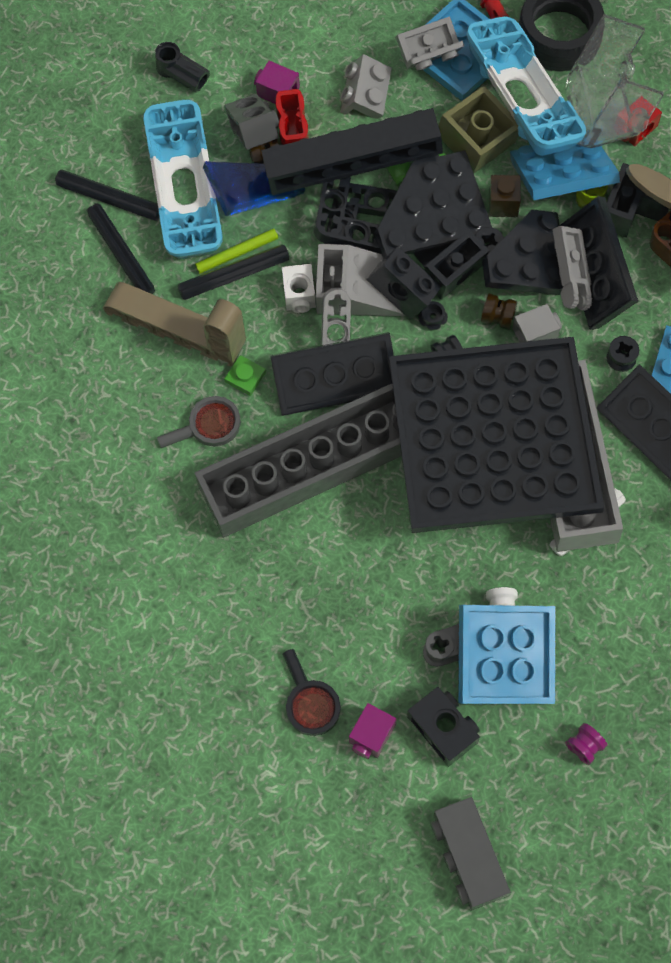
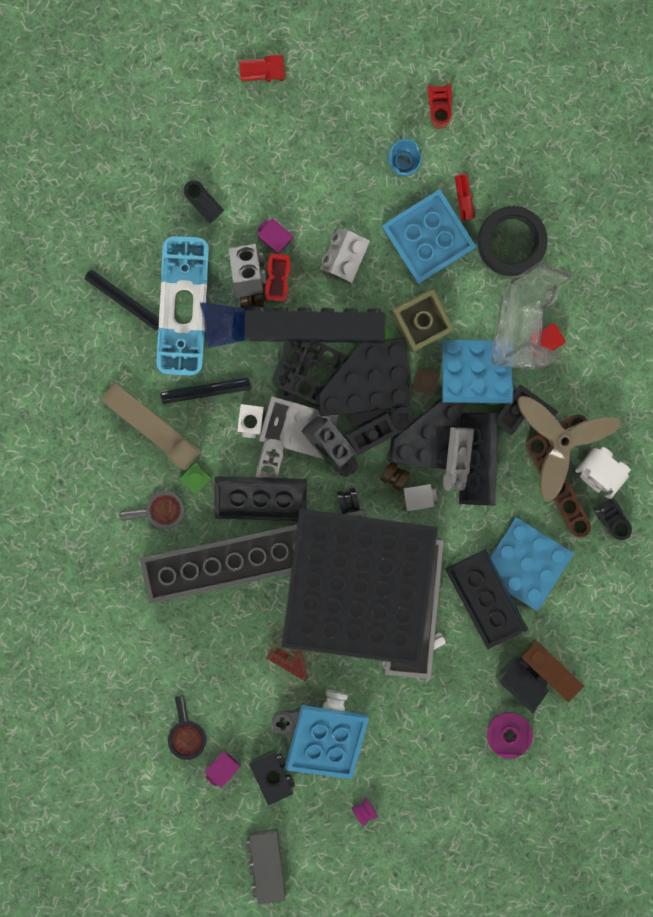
camera: 15 degrees right, 20 degrees up
(119, 248) = (123, 350): black axle -> none
(236, 251) = (213, 372): lime bar -> none
(429, 43) = (402, 237): light grey bracket -> none
(435, 571) = (295, 665): none -> clear red slope
(509, 55) = (460, 263): medium azure piece -> none
(618, 360) = (472, 529): black wheel -> none

